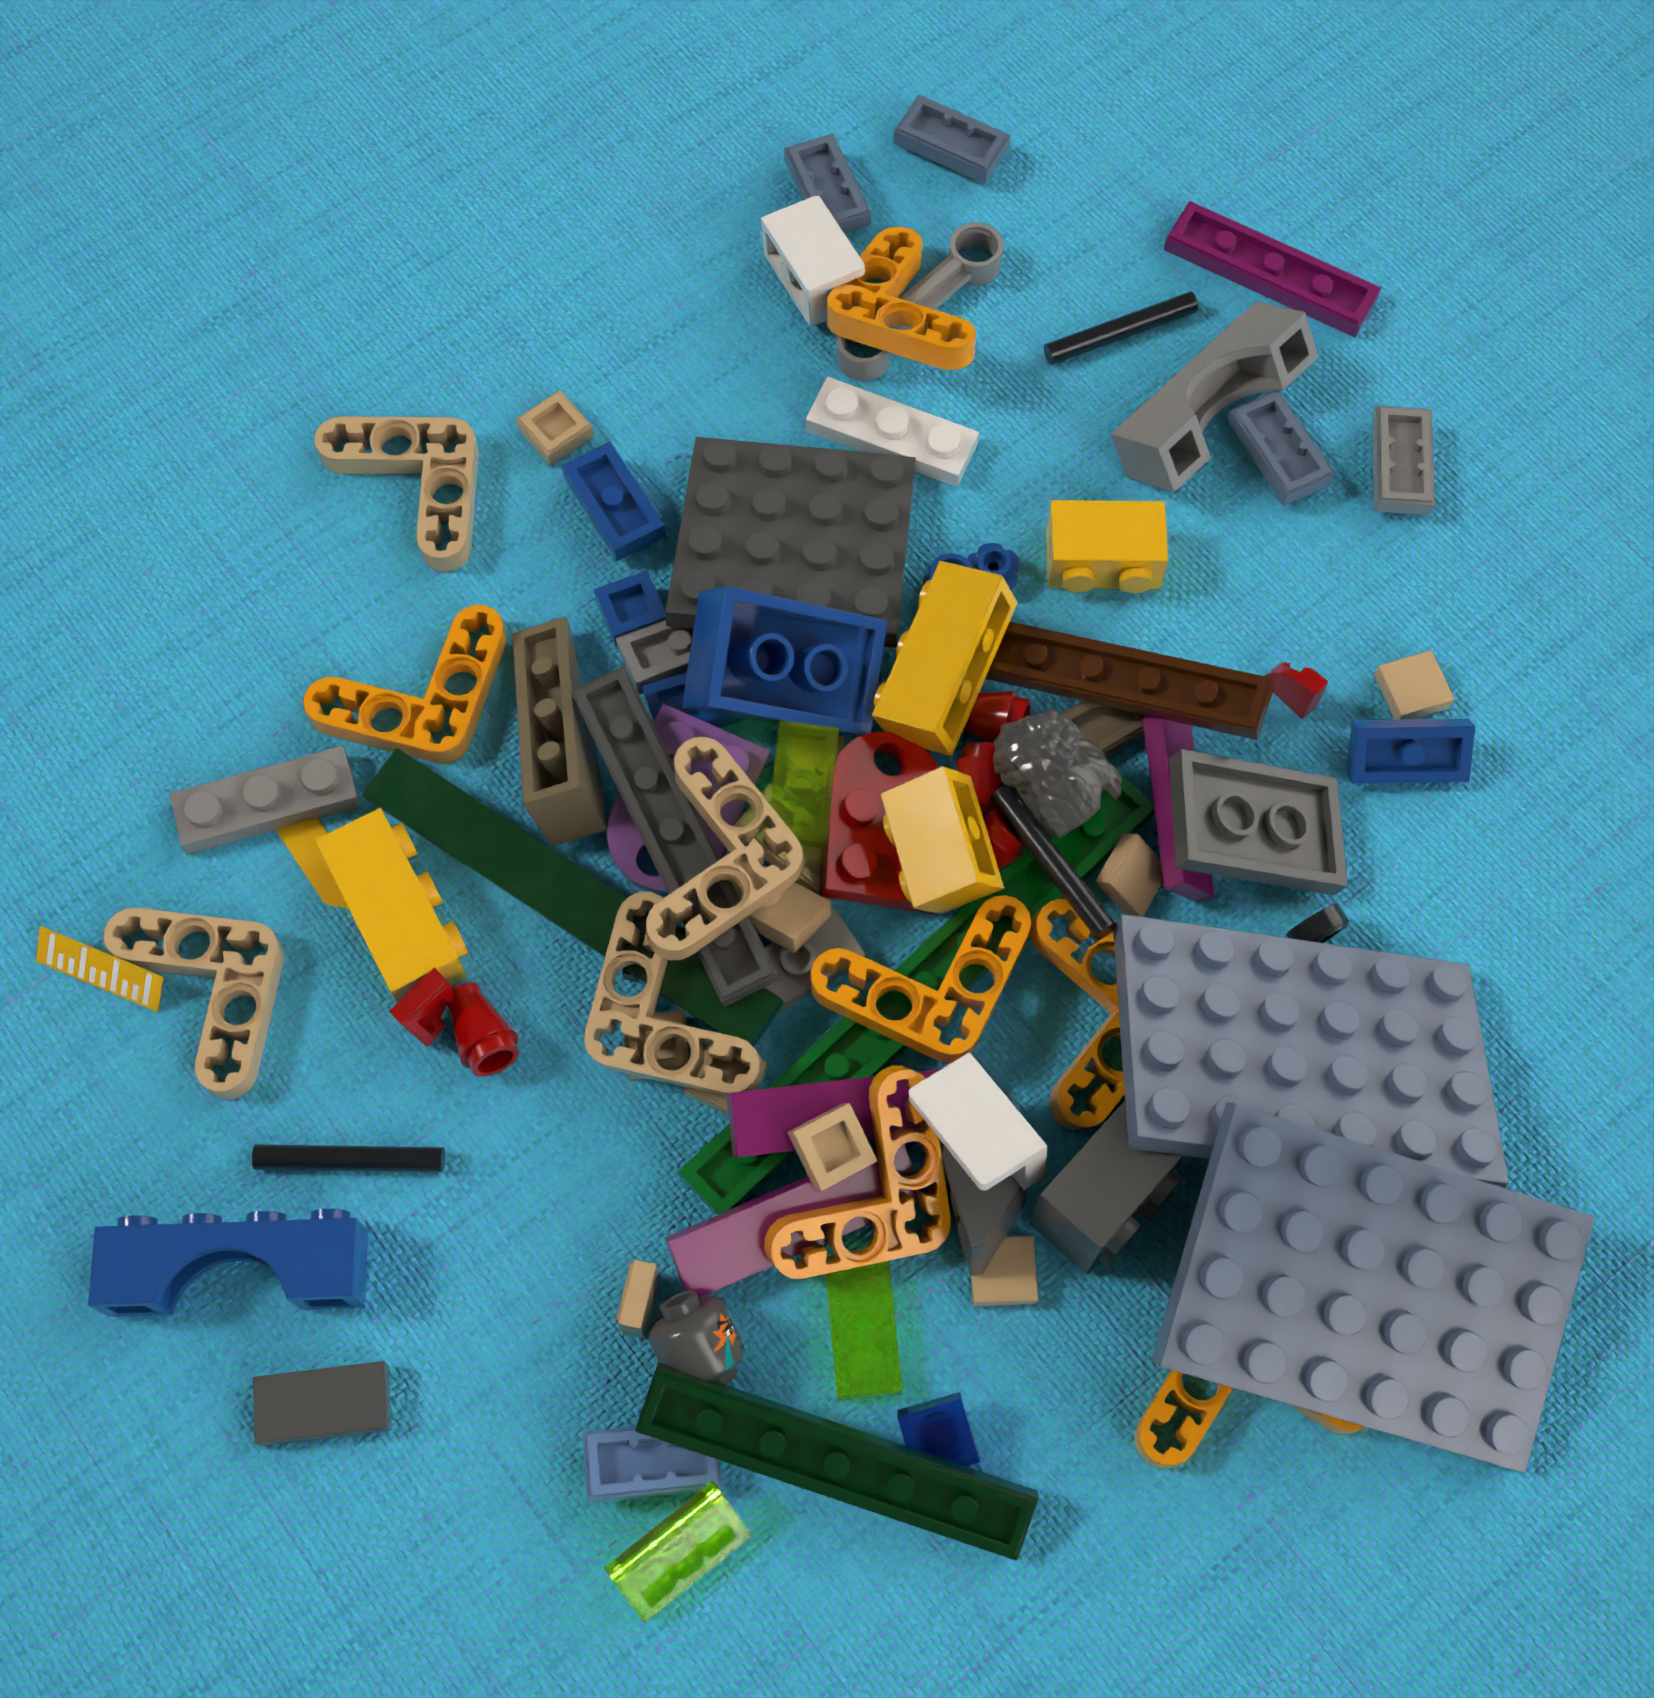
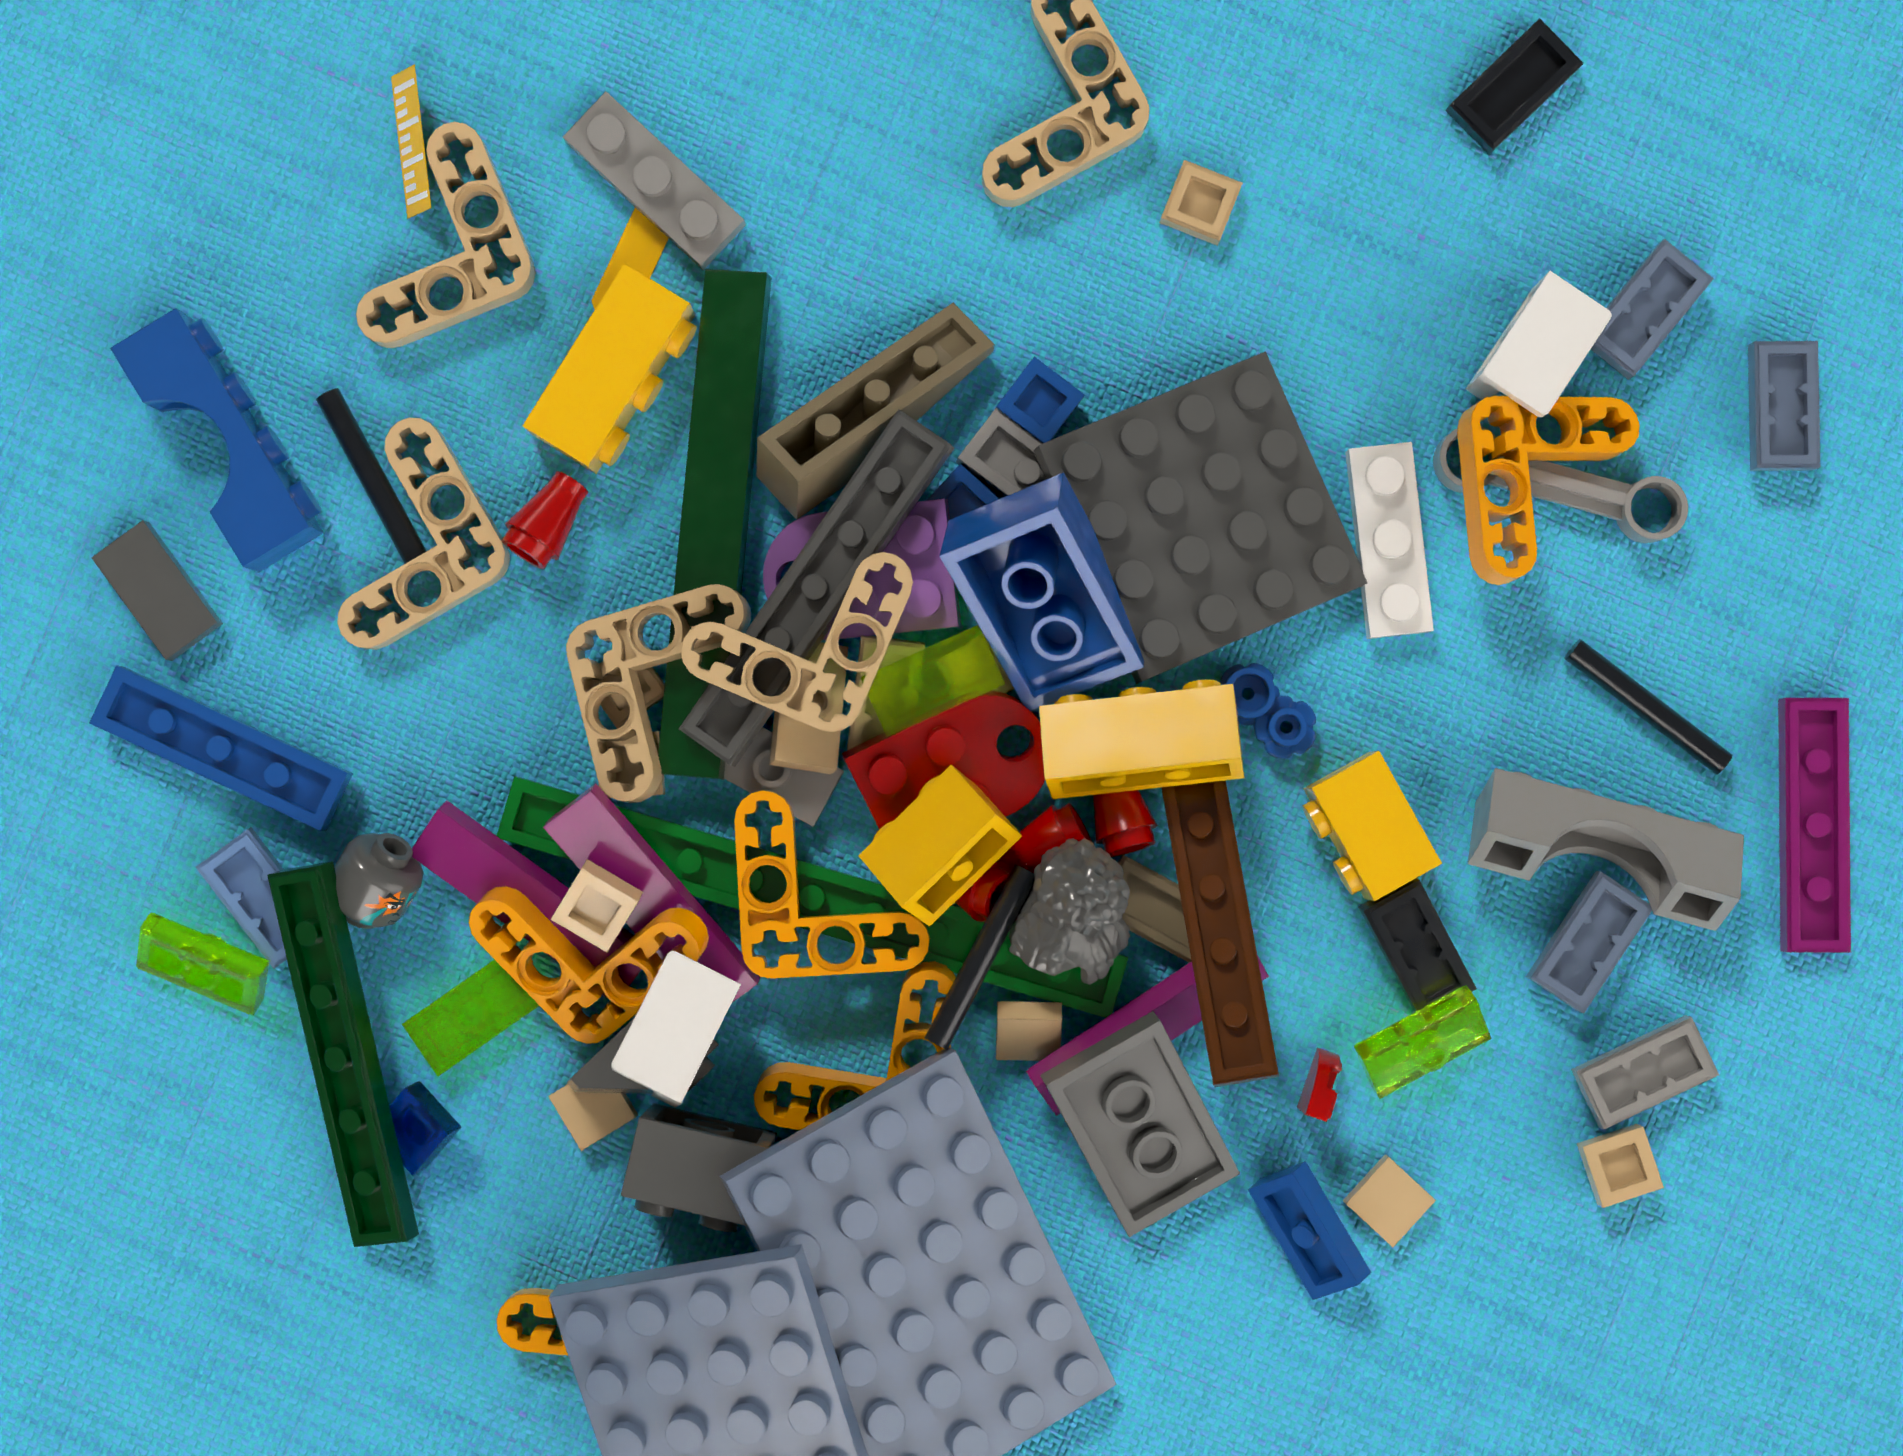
camera: 60 degrees right, 20 degrees up
(419, 714) = (815, 267): light orange beam -> none
(423, 1006) = (529, 461): red tile -> none
(456, 1133) = (444, 559): none -> tan beam
(494, 1423) = (221, 748): none -> blue plate
(611, 192) = (1514, 86): none -> black tile
(613, 501) = (1146, 313): blue plate -> none
(638, 1298) = (386, 807): tan tile -> none
(1221, 563) = (1416, 945): none -> black plate
(1298, 595) = (1423, 1041): none -> clear neon green plate
(1321, 925) = (1071, 1229): black tile -> none
(1468, 511) = (1620, 1165): none -> tan plate

